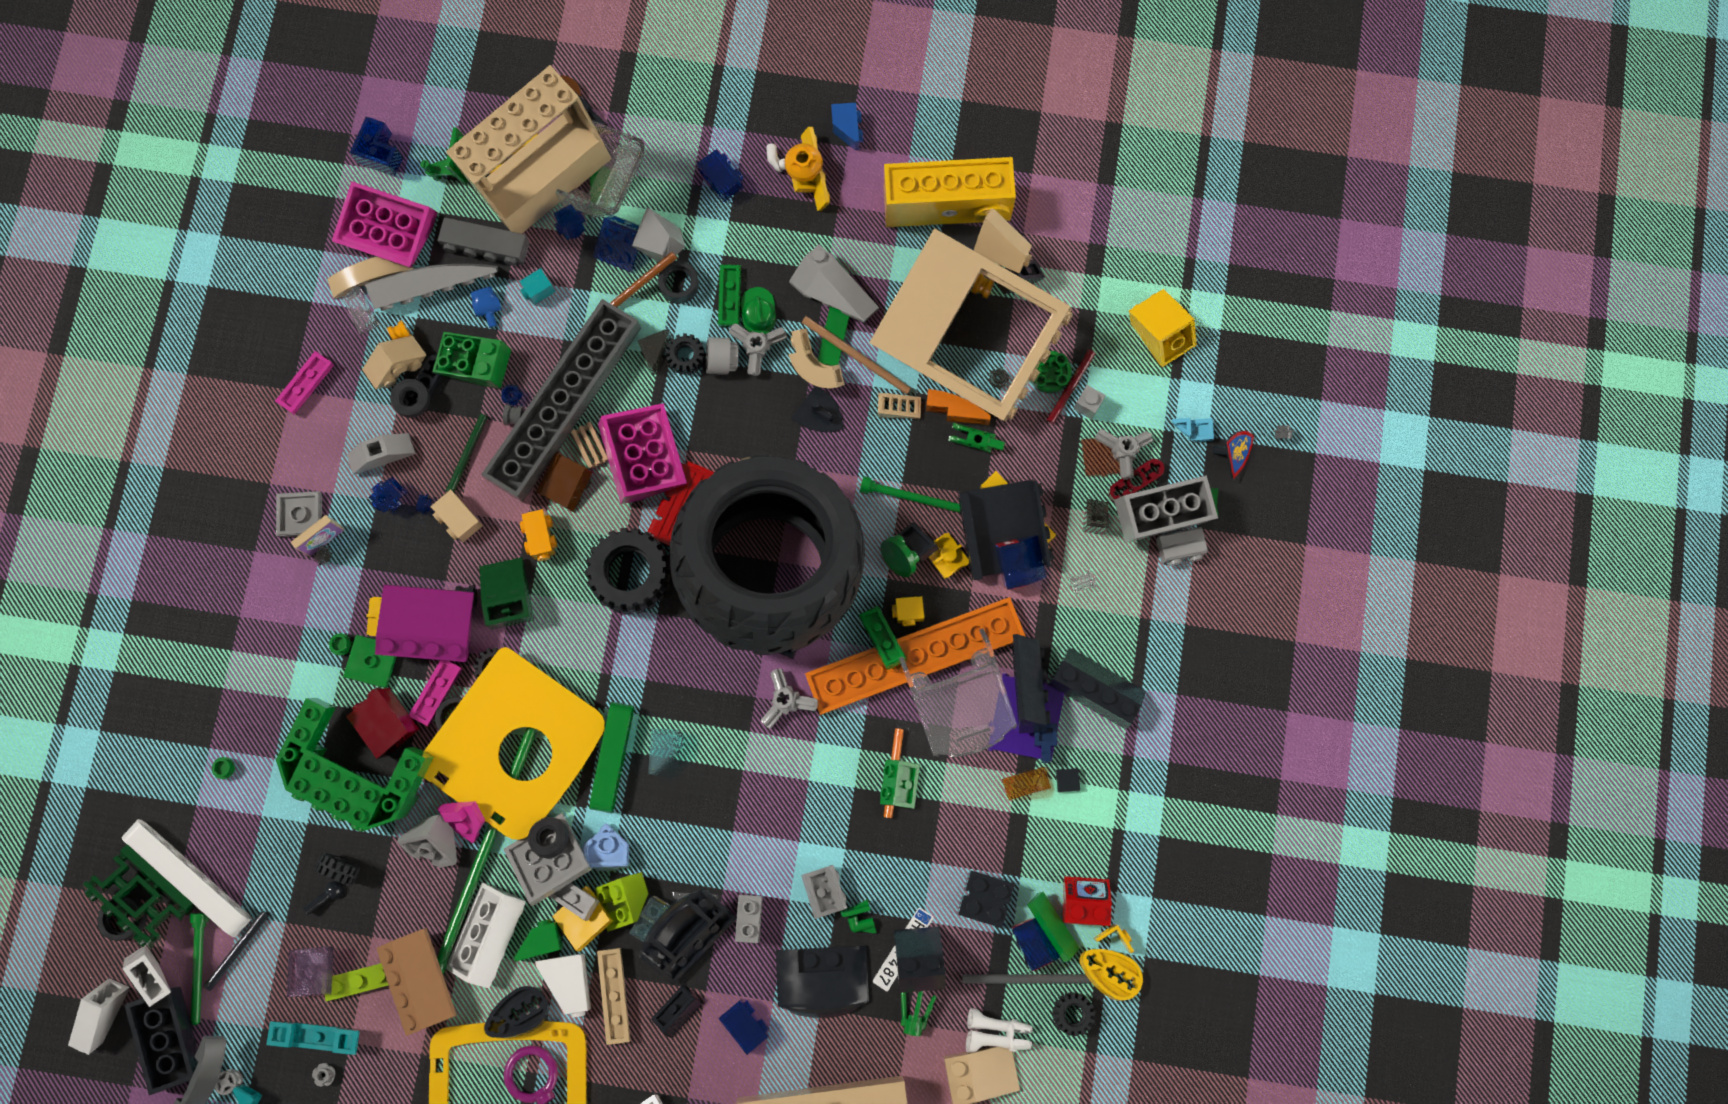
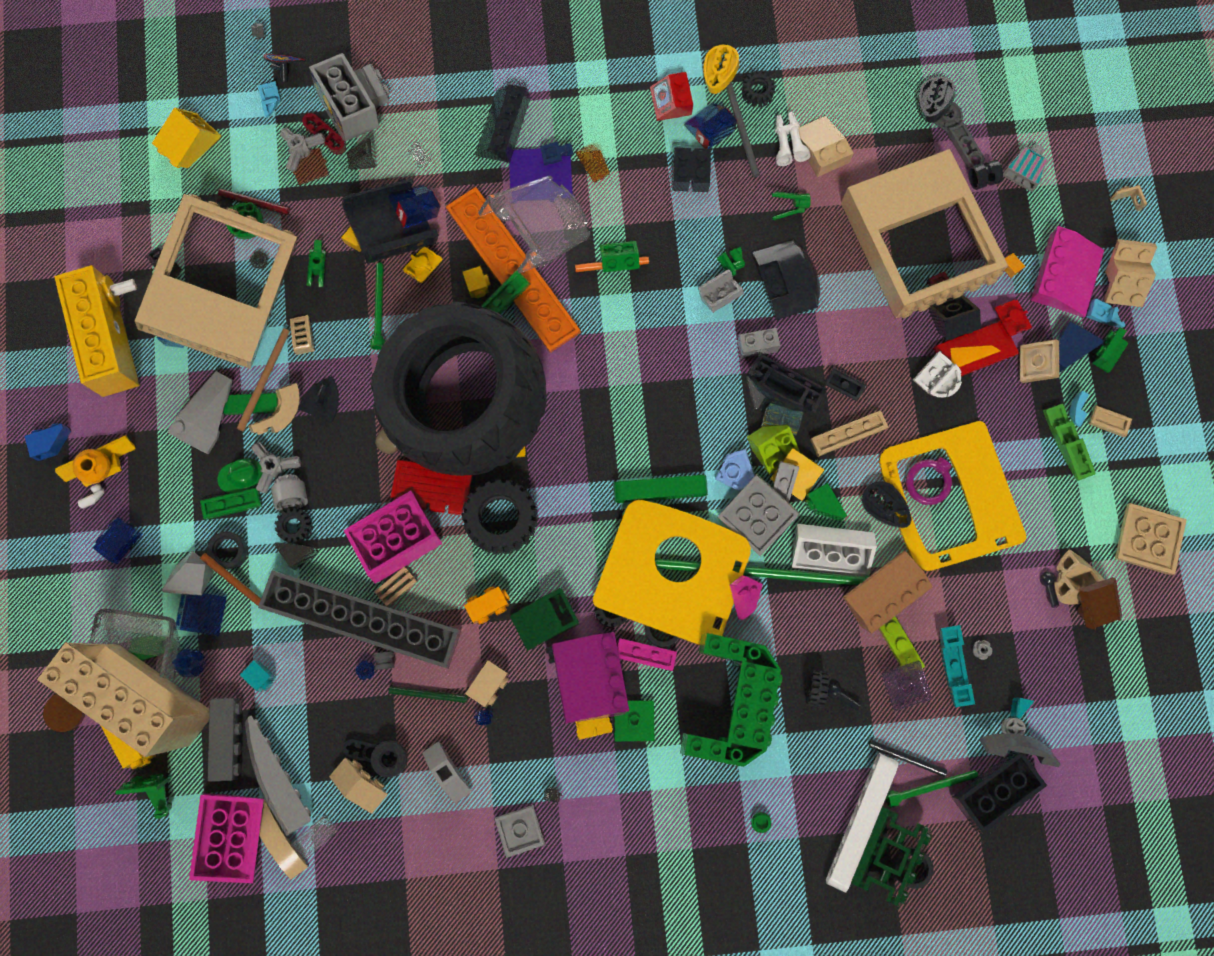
camera: 105 degrees left, 0 degrees up
(96, 1015) = (997, 859): white slope -> none
(146, 975) = (953, 822): white slope -> none
(304, 382) = (396, 866): dark pink plate -> none
(317, 535) = (536, 801): tile -> none
(340, 644) = (626, 753): green plate -> none
(372, 149) = (154, 874): clear blue brick -> none
(382, 722) = (684, 690): dark red brick -> none
(387, 495) = (483, 751): clear blue brick -> none
(398, 331) = (328, 791): light orange wheel -> none
(432, 840) = (770, 618): light grey slope -> none
(472, 359) = (339, 714): green slope -> none
(485, 304) = (285, 719): blue piece -> none
(557, 846) = (738, 529): black tyre -> none
(564, 482) = (434, 598): reddish brown slope -> none
(567, 982) = (849, 471): white slope -> none
(663, 748) = (642, 448): clear light blue slope -> none
(745, 1026) = (841, 326): clear blue brick -> none
(795, 701) = (575, 350): light grey bush -> none
(888, 971) = (746, 225): white sticker -> none
(899, 556) = (433, 294): green tile -> none
(918, 541) = (417, 288): black tile -> none
(919, 959) = (751, 202): black slope -> none
(956, 407) = (293, 287): orange slope -> none
(1002, 243) = (135, 270): tan slope -> none
(1029, 685) = (515, 172): black slope -> none
(1053, 926) = (698, 114): green tile -> none
(1067, 780) = (581, 132): black tile -> none
(1089, 402) = (264, 181): light grey brick -> none
(1123, 935) = (689, 67): yellow bracket -> none

